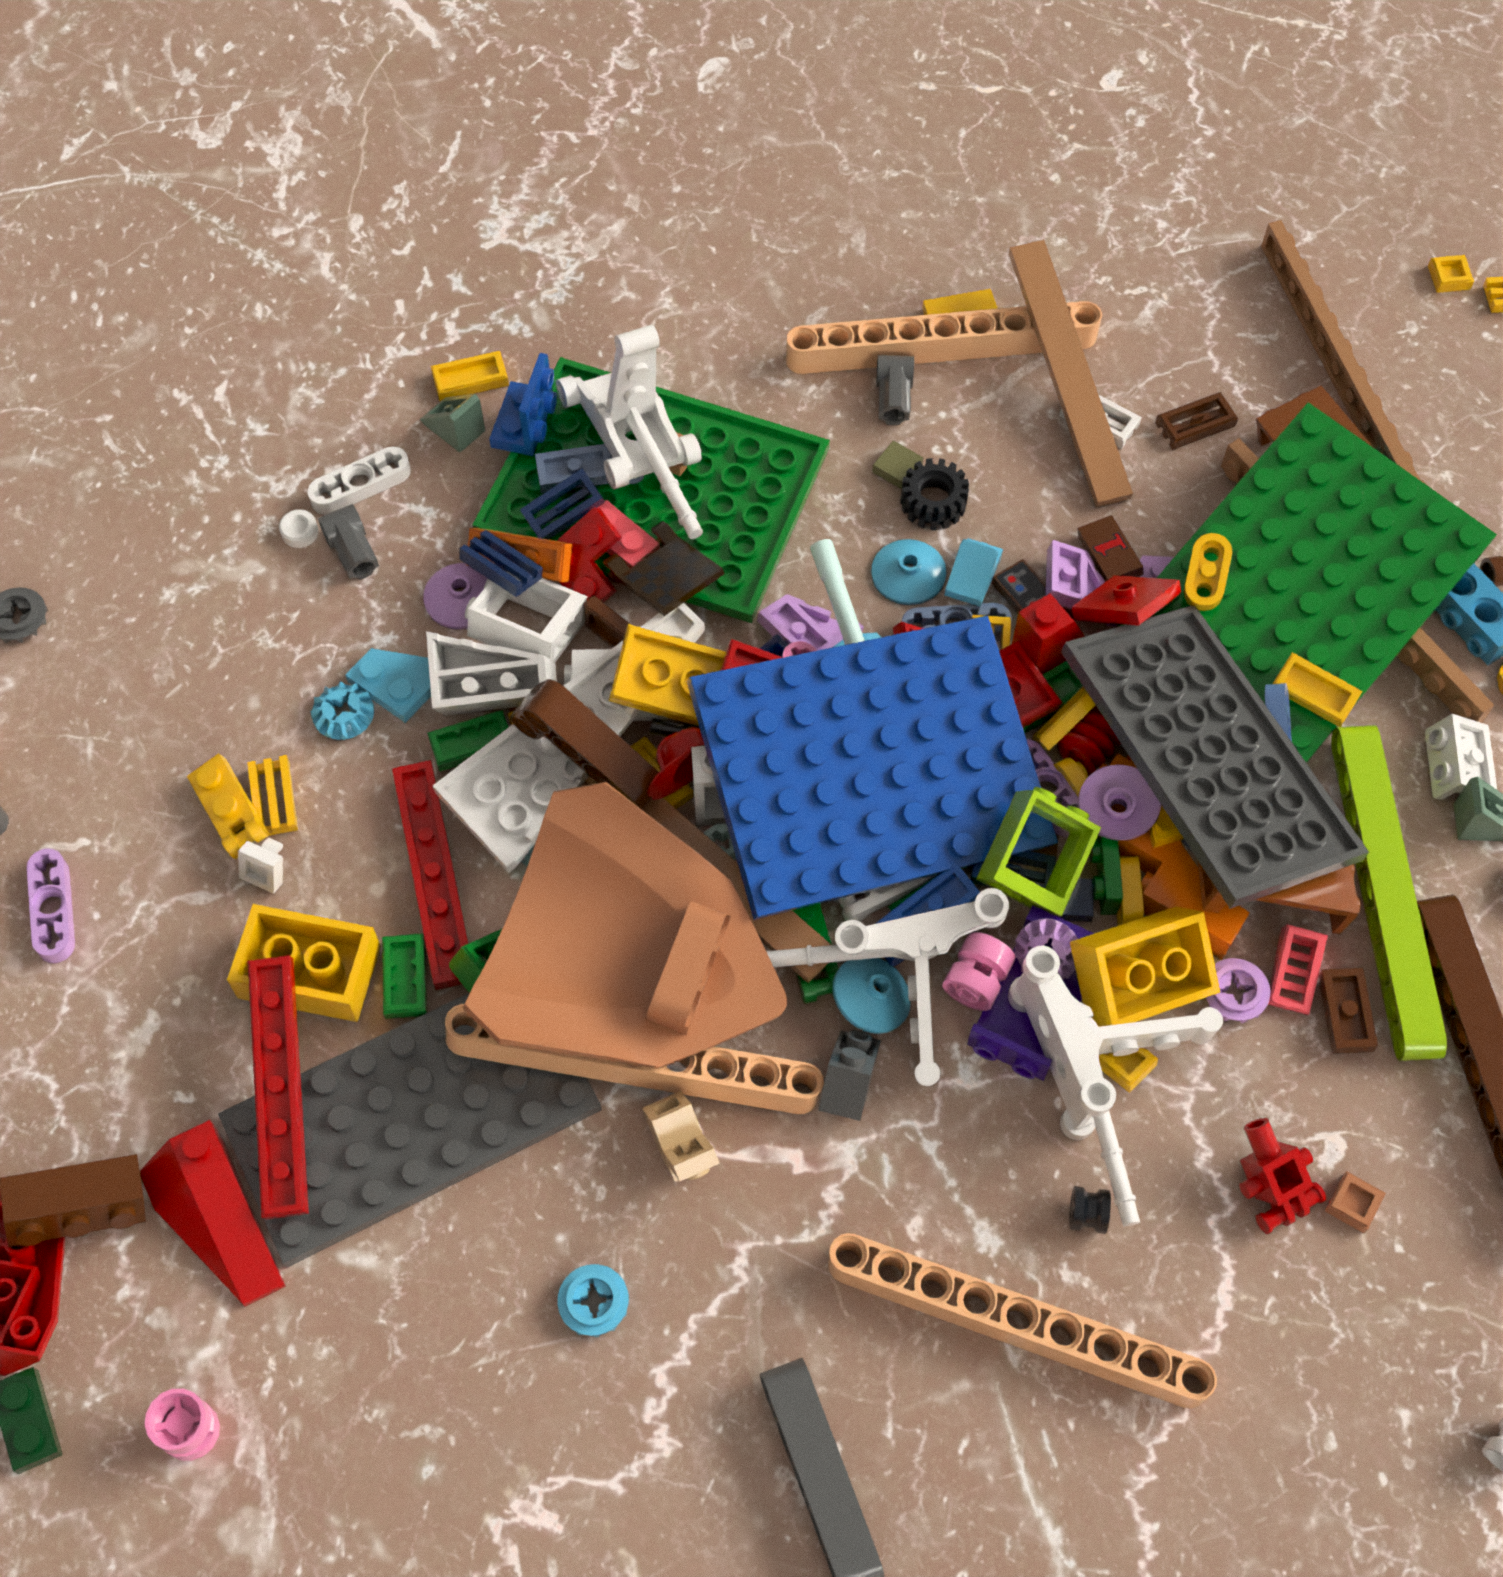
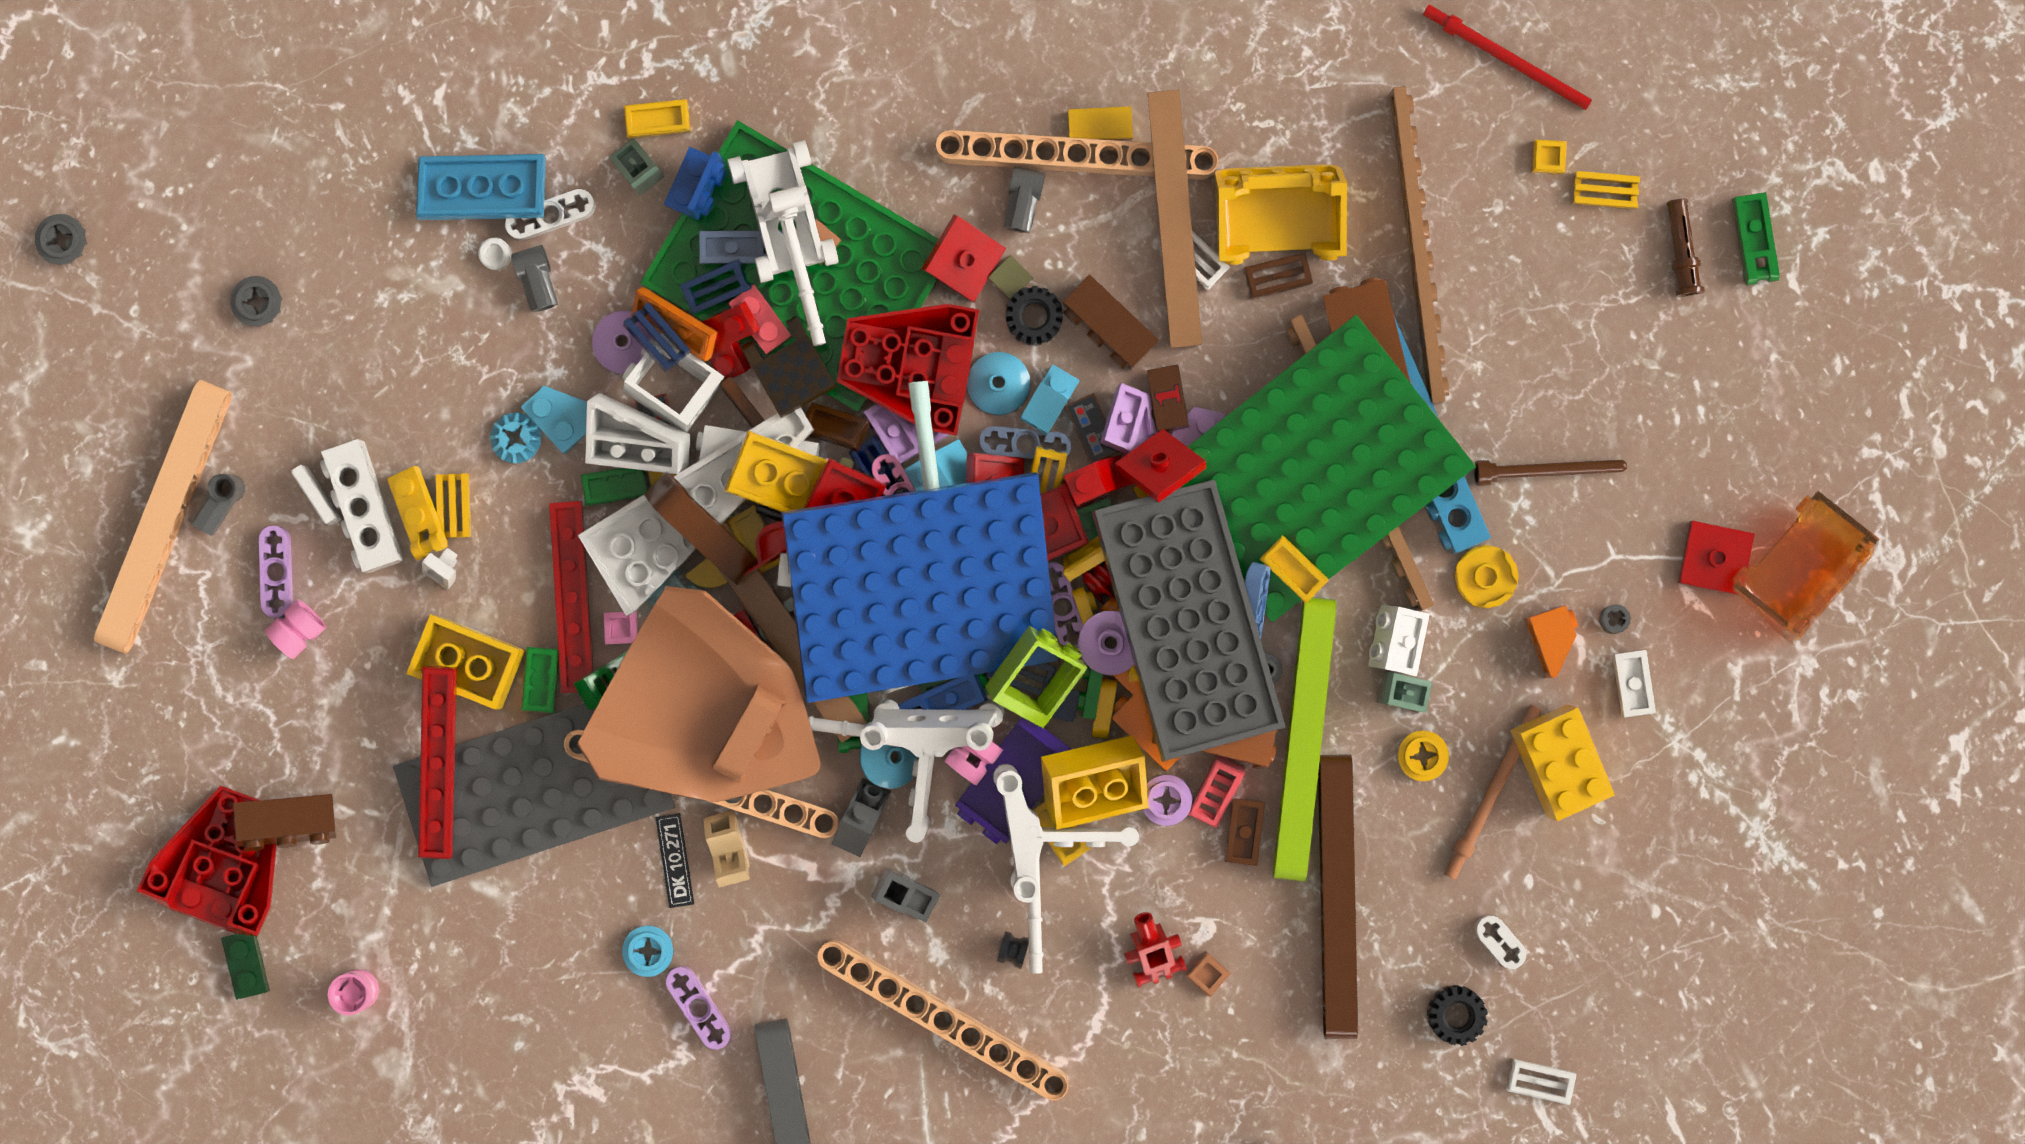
camera: 10 degrees right, 25 degrees up
(78, 961) = (293, 631): none -> bright pink wheel
(98, 806) = (316, 495): none -> white tile
(187, 857) = (387, 547): none -> white brick
(208, 1208) = (381, 833): red wedge -> none
(275, 462) = (481, 187): none -> dark azure tile
(497, 896) = (620, 628): none -> bright pink plate
(612, 1178) = (674, 860): none -> black sticker
(645, 1350) = (694, 1020): none -> lavender beam
(744, 629) = (837, 426): none -> reddish brown tile
(771, 540) = (910, 346): none -> red wedge
(841, 447) = (963, 258): none -> plate
(923, 1156) = (905, 894): none -> dark grey brick
(1023, 486) = (1109, 323): none -> reddish brown brick
(1038, 934) = (1021, 739): lavender gear -> none
(1186, 354) = (1281, 211): none -> yellow windscreen
(1207, 573) = (1232, 454): yellow plate -> none
(1310, 176) = (1454, 25): none -> red bar

